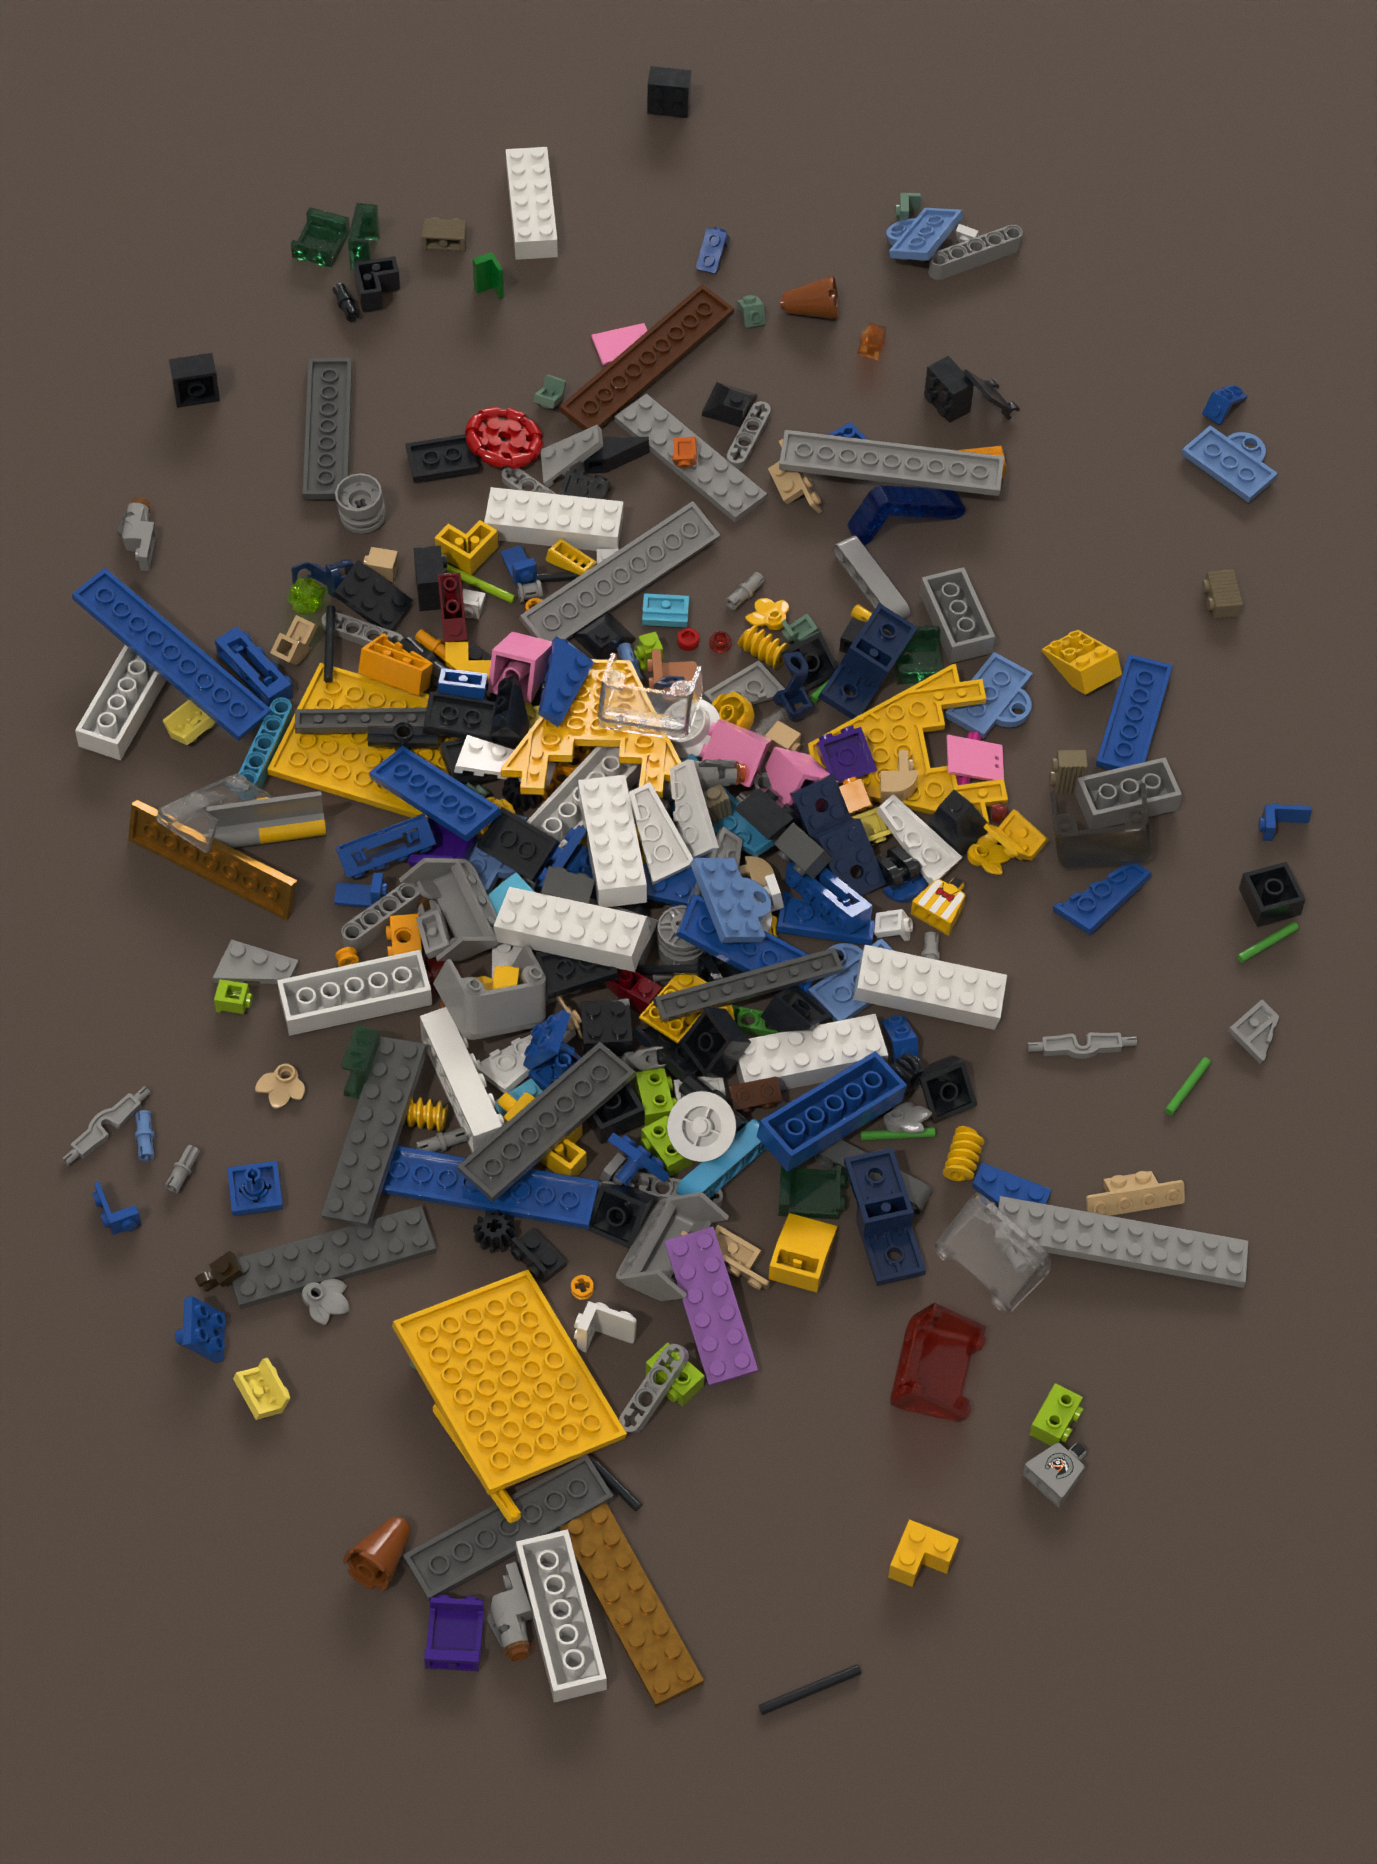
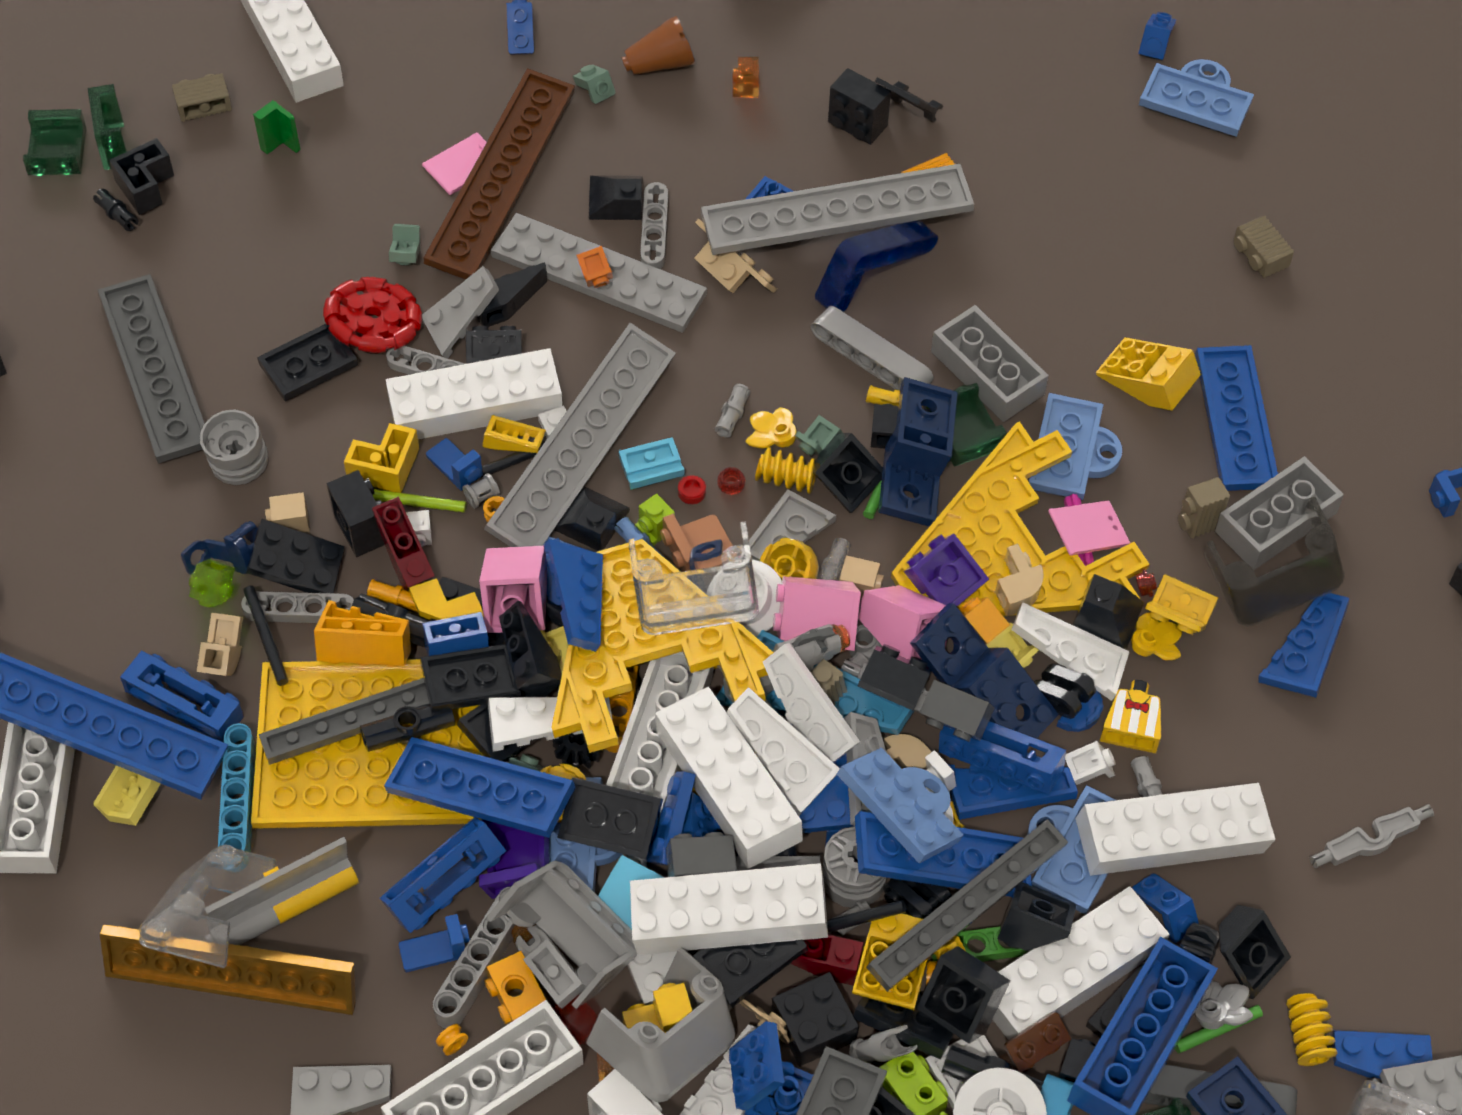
camera: 20 degrees left, 0 degrees up
(794, 692) = (848, 513): dark blue piece -> none

